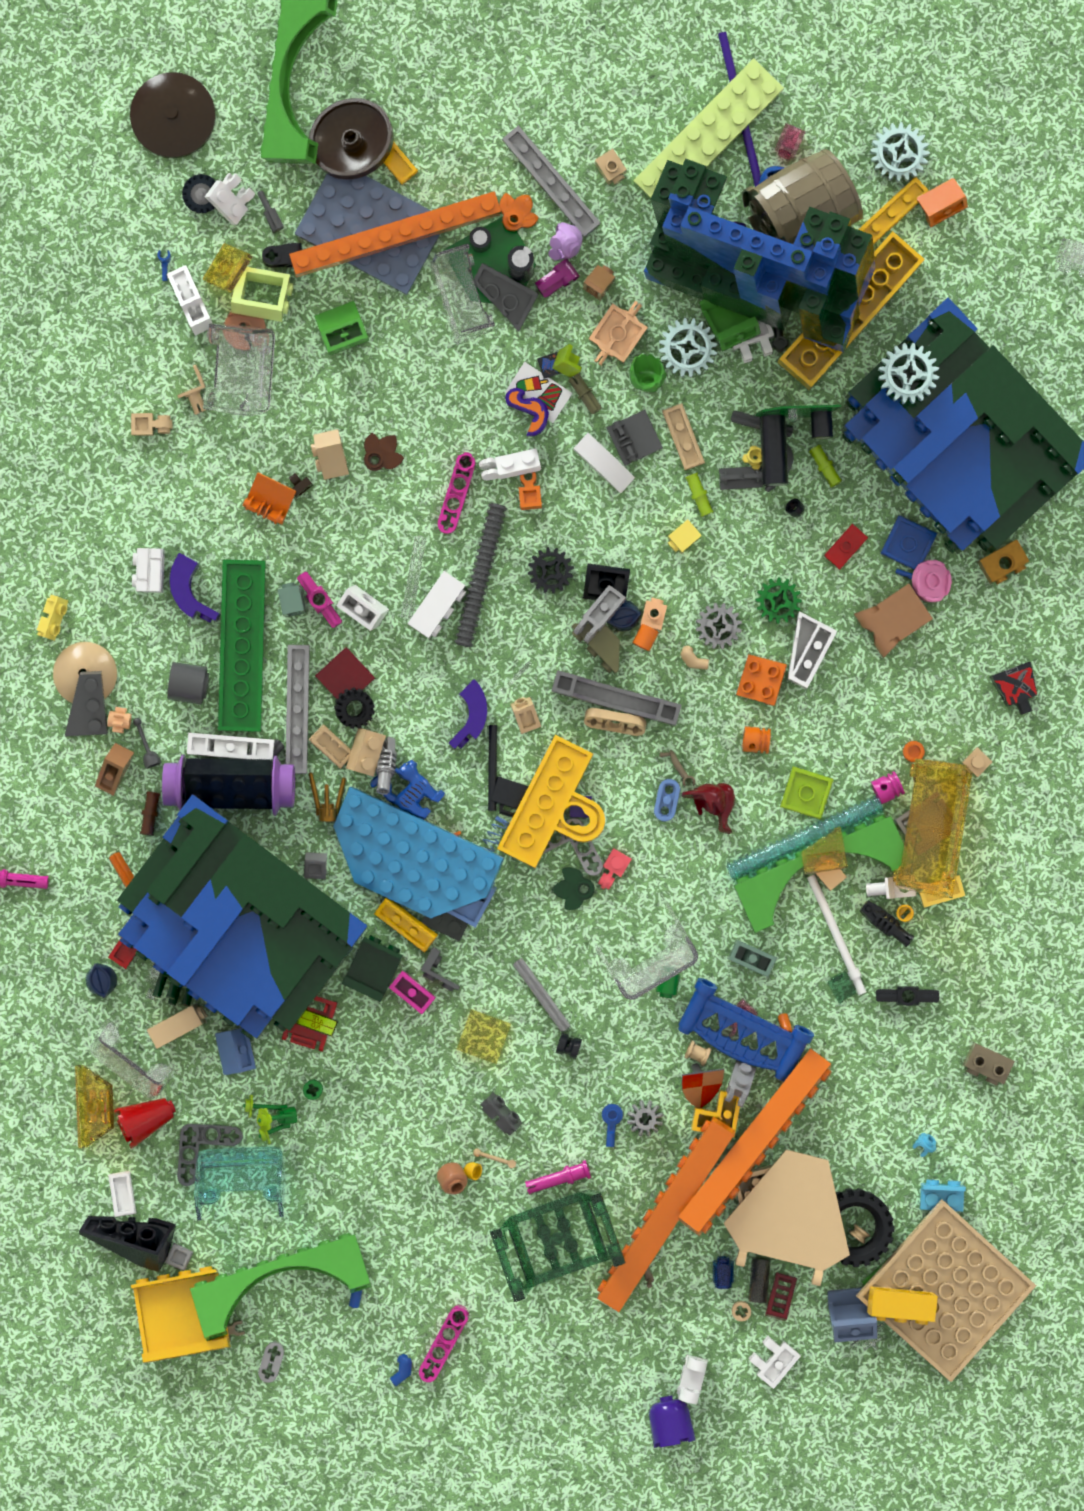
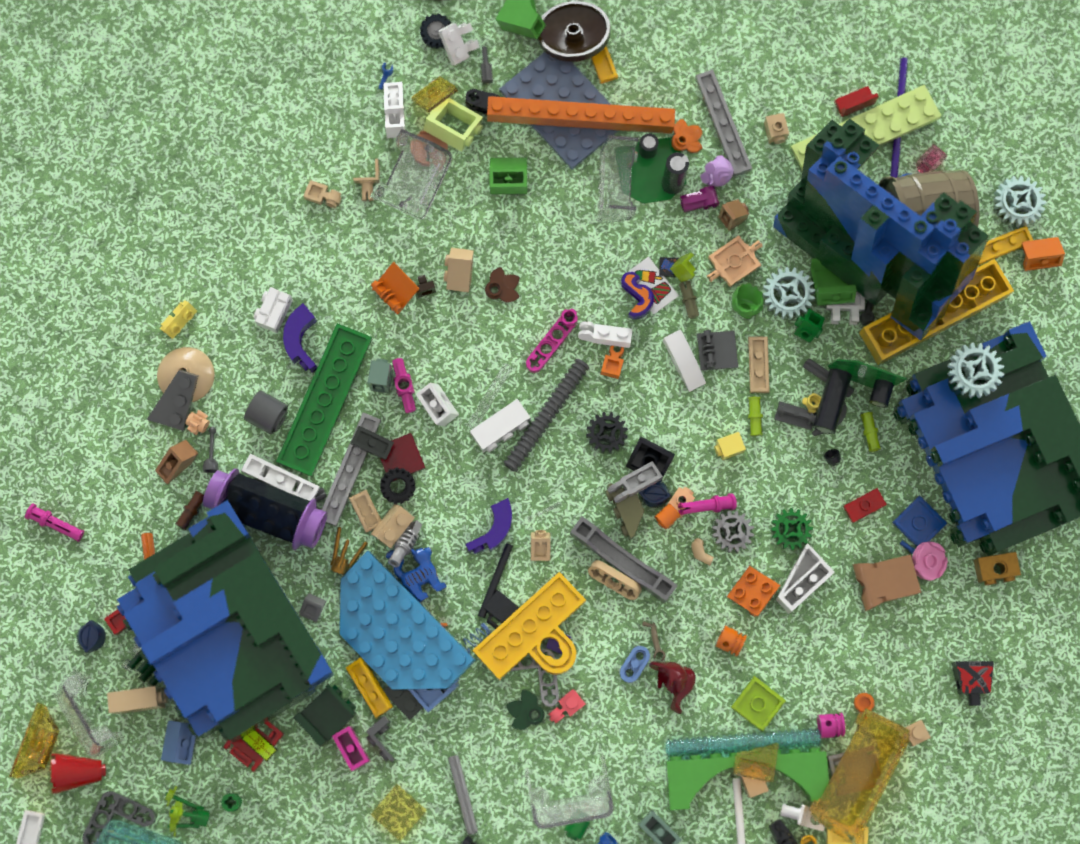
camera: 20 degrees right, 10 degrees down
(310, 674) = (371, 442): none -> pearl dark grey plate
(506, 294) = (655, 199): dark grey wing -> none
(685, 102) = (855, 101): none -> red panel
(690, 604) = (715, 504): none -> dark pink pin
(721, 376) = (809, 325): none -> green brick

